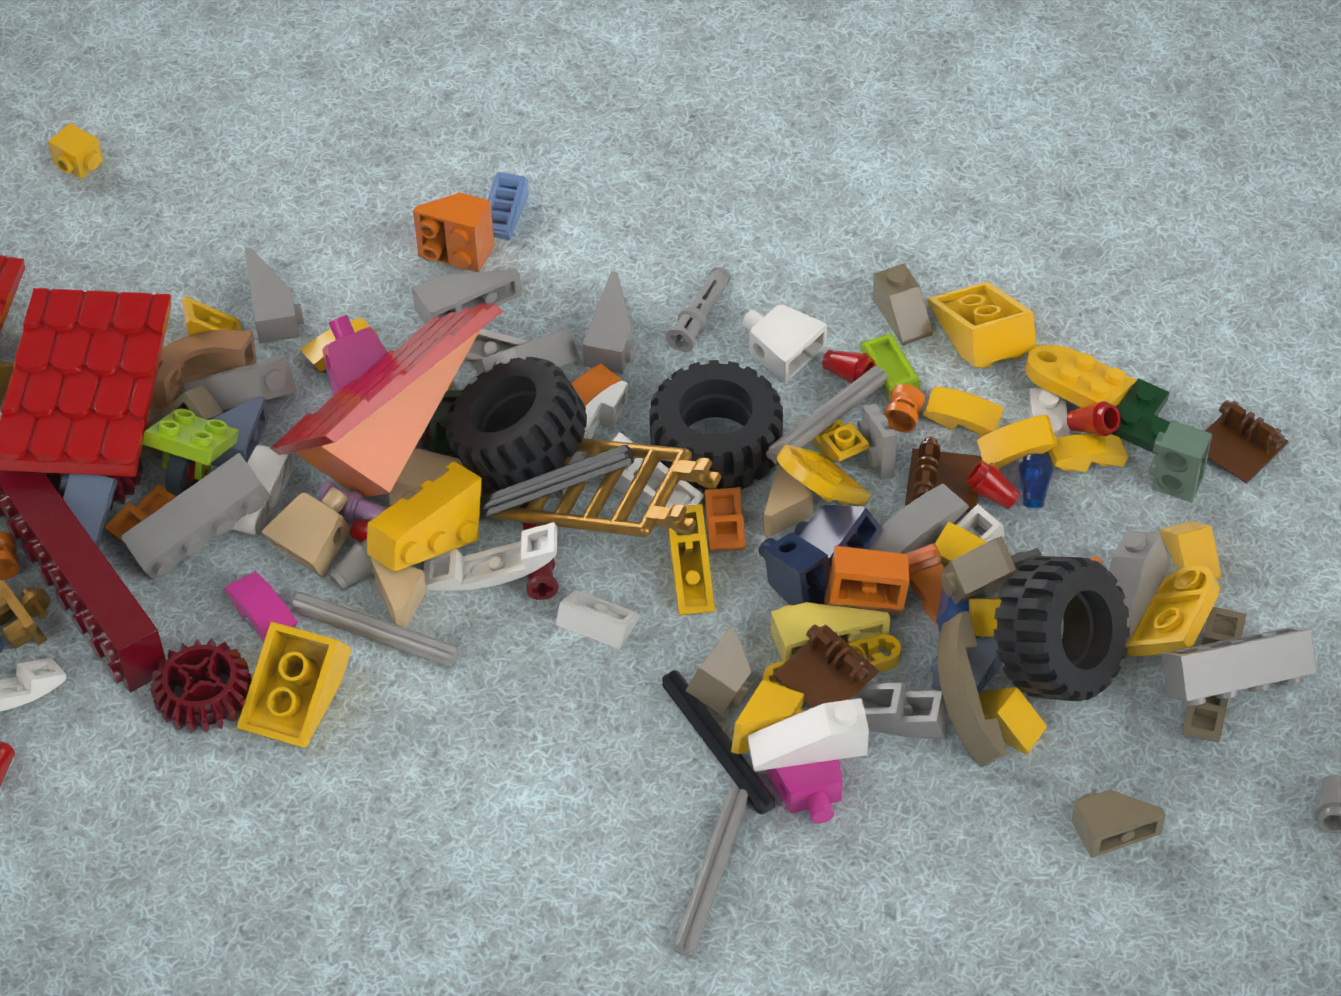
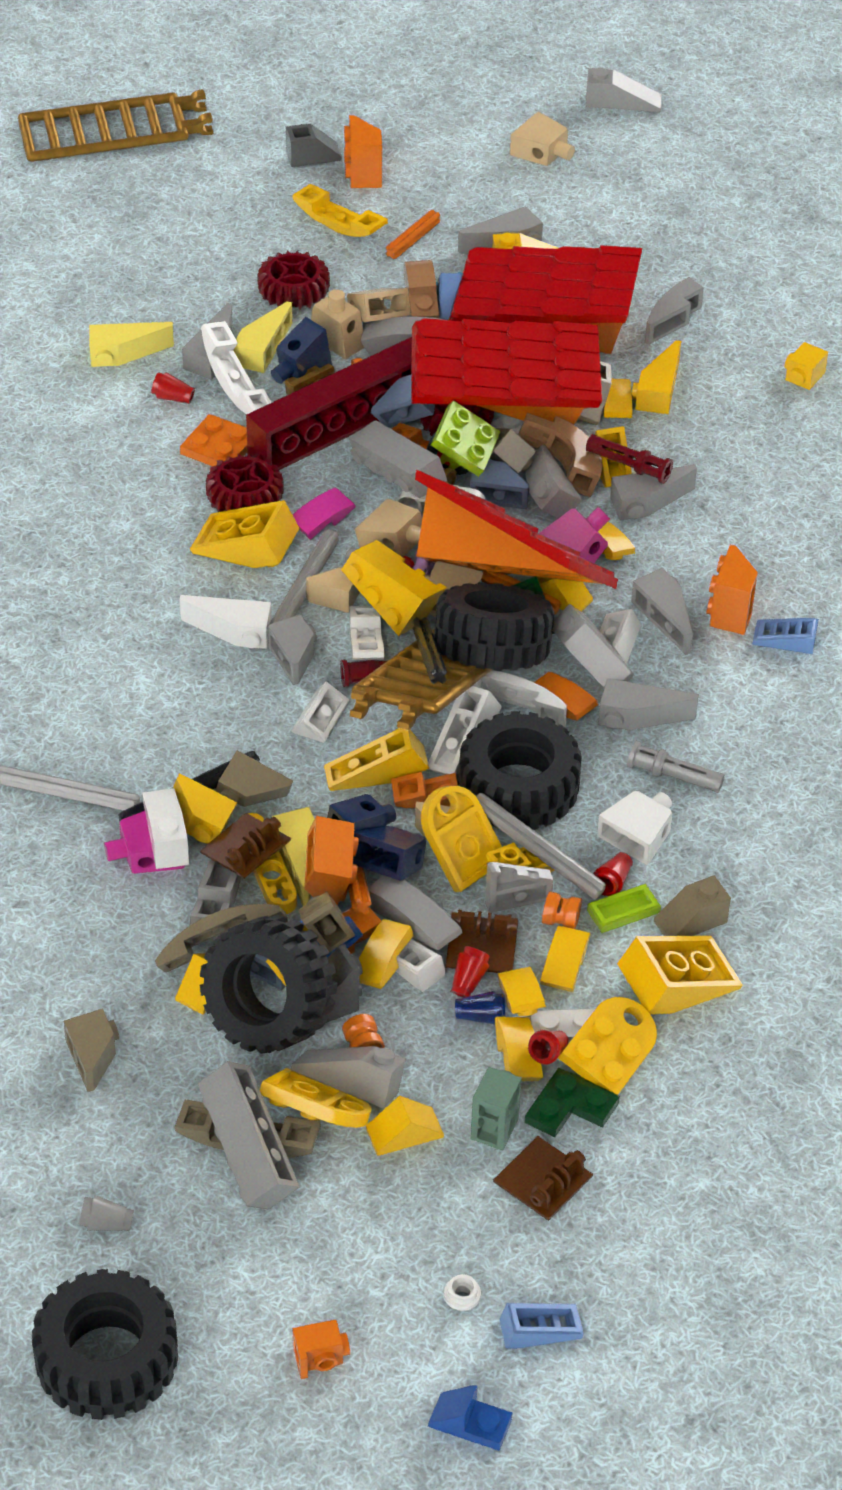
camera: 85 degrees right, 5 degrees down
(72, 271) = (658, 381): none -> yellow slope
(102, 719) = (215, 440): none -> orange plate
(246, 287) = (643, 460): none -> dark red pin
(447, 695) = (232, 620): none -> white slope
(498, 635) = (292, 645): none -> light grey slope

